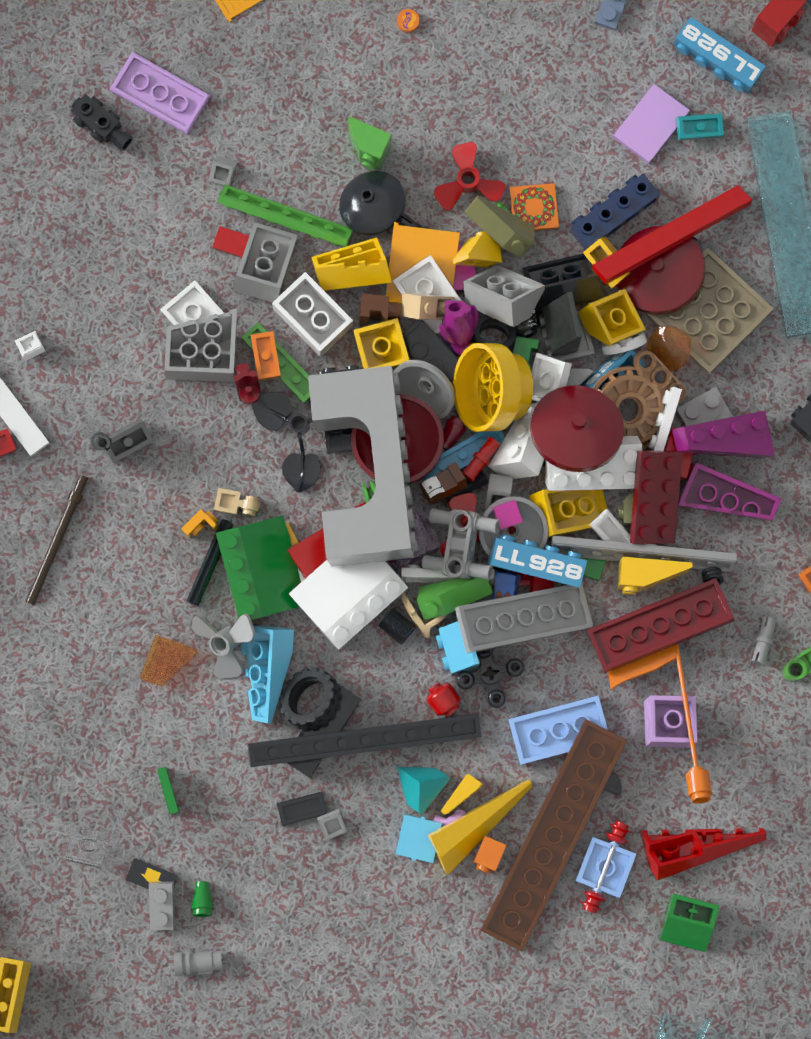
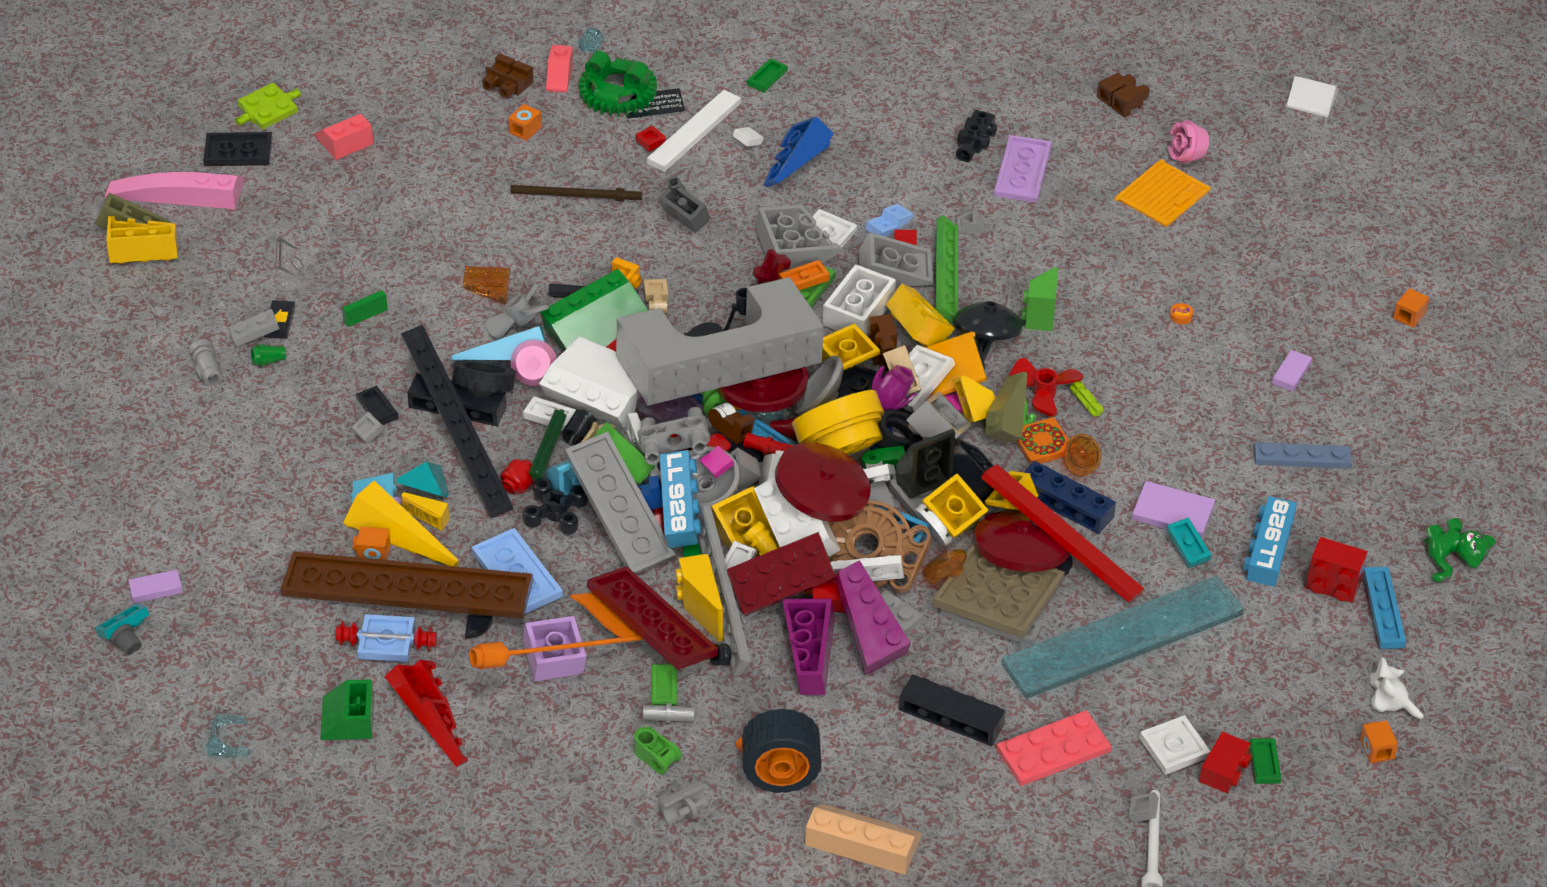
camera: 75 degrees right, 35 degrees down
(69, 301) = (800, 145): none -> blue wedge
(196, 247) = (891, 219): none -> light blue slope
(305, 646) = (532, 361): none -> bright pink cone
(366, 648) = (542, 410): none -> white plate
(418, 662) = (547, 444): none -> dark green axle
(495, 148) = (1086, 399): none -> lime axle
(572, 181) = (1082, 455): none -> clear orange piece
(600, 500) = (760, 539): none -> yellow axle
(731, 637) = (664, 685): none -> bright green tile

